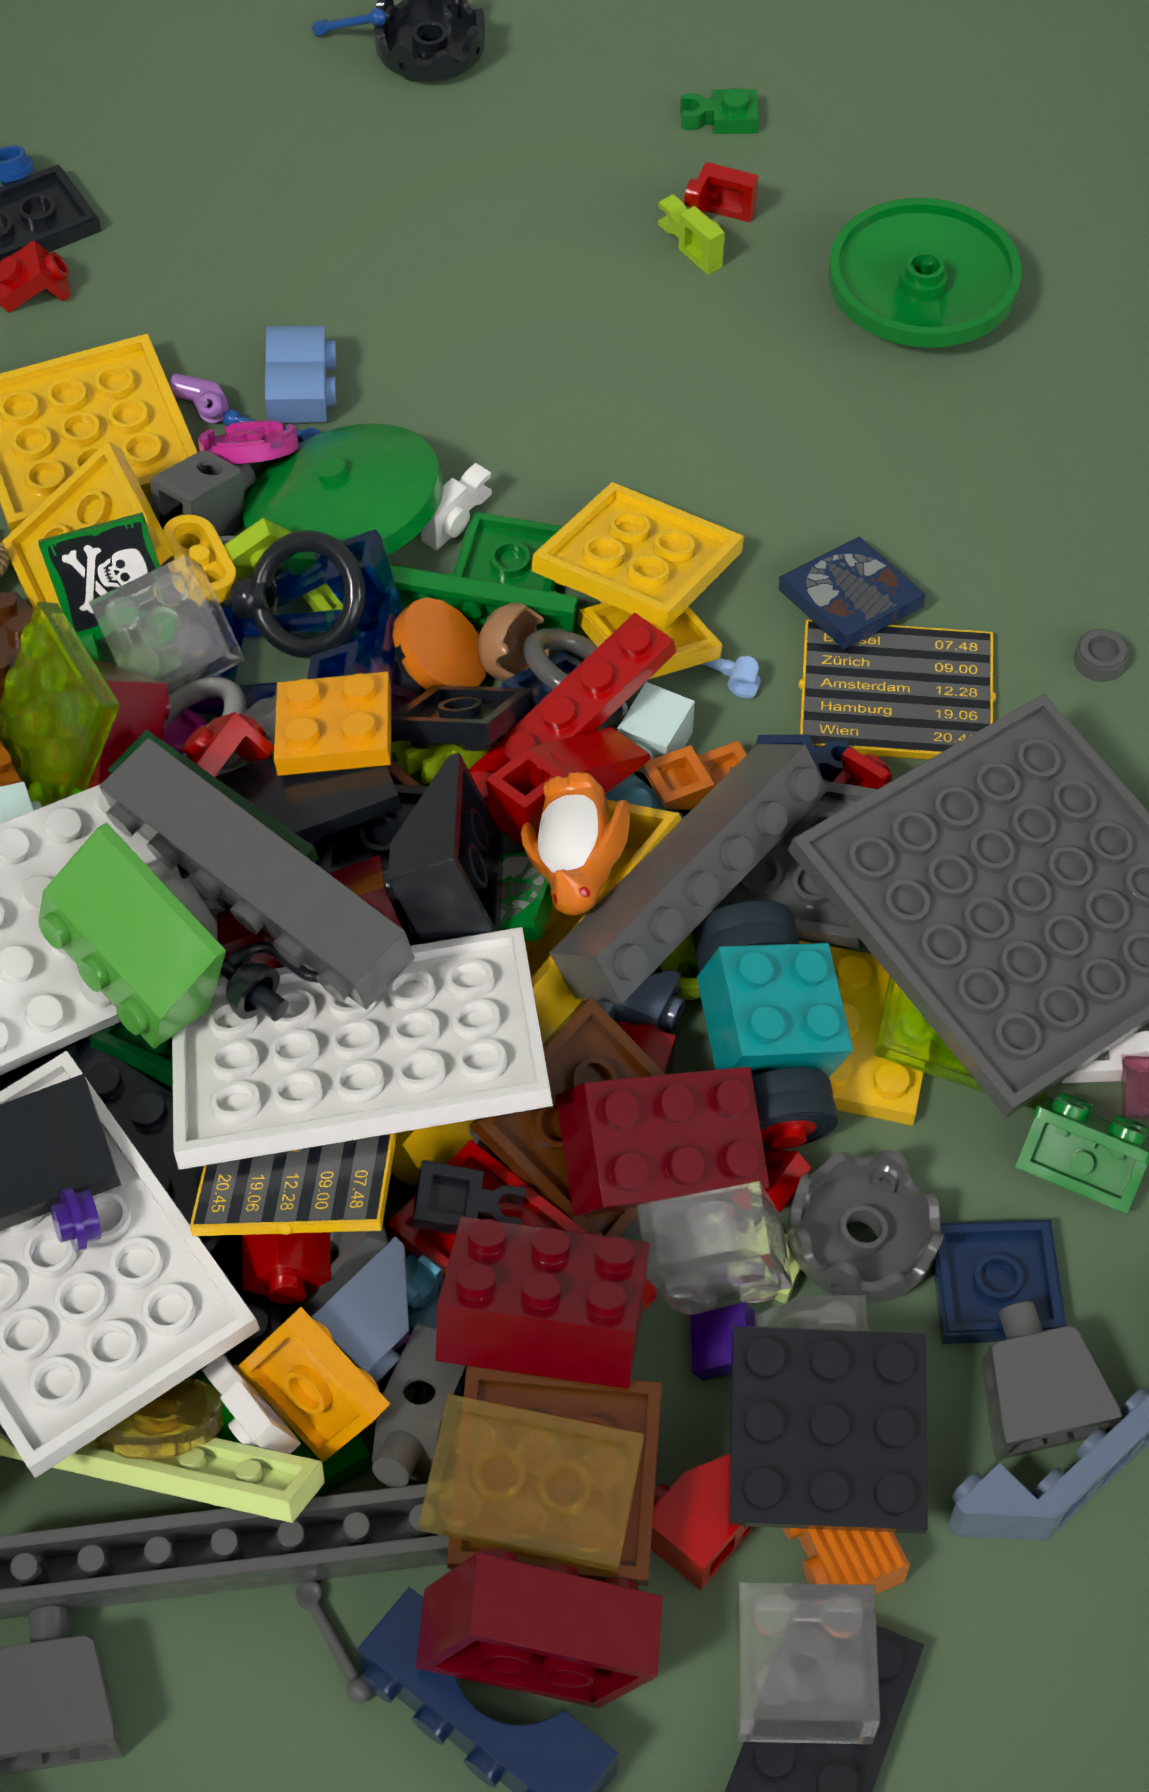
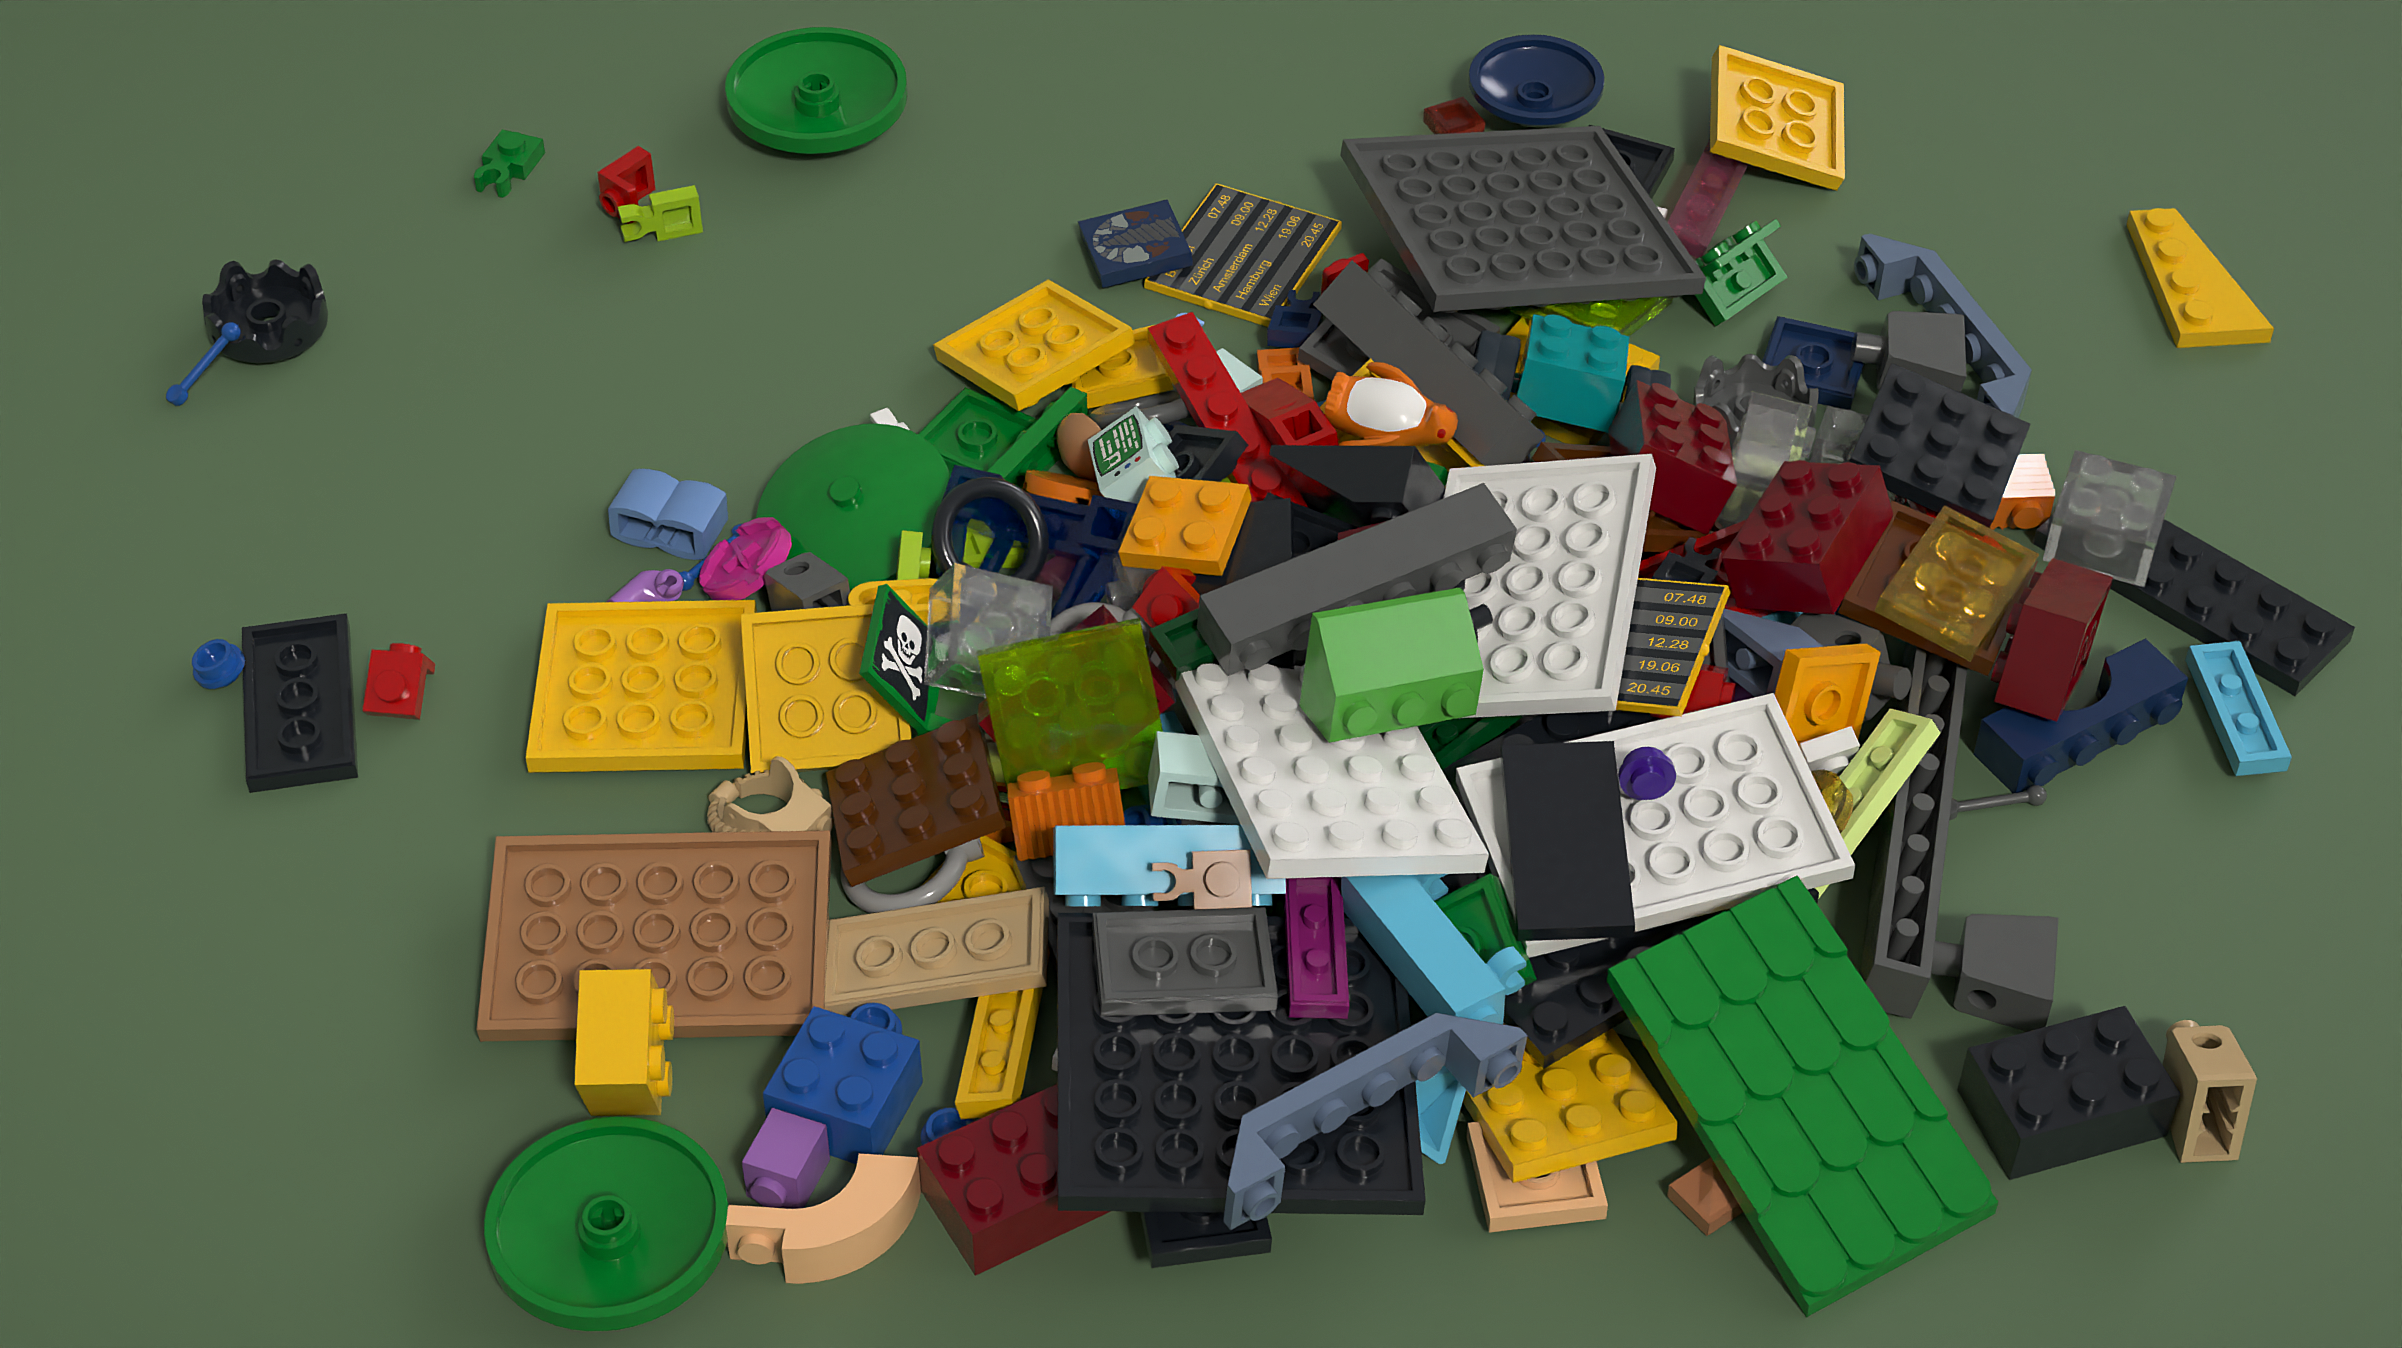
camera: 70 degrees left, 10 degrees down
(445, 668) = (1130, 453): none -> light aqua brick
(1101, 655) = (1270, 134): dark grey tile -> none

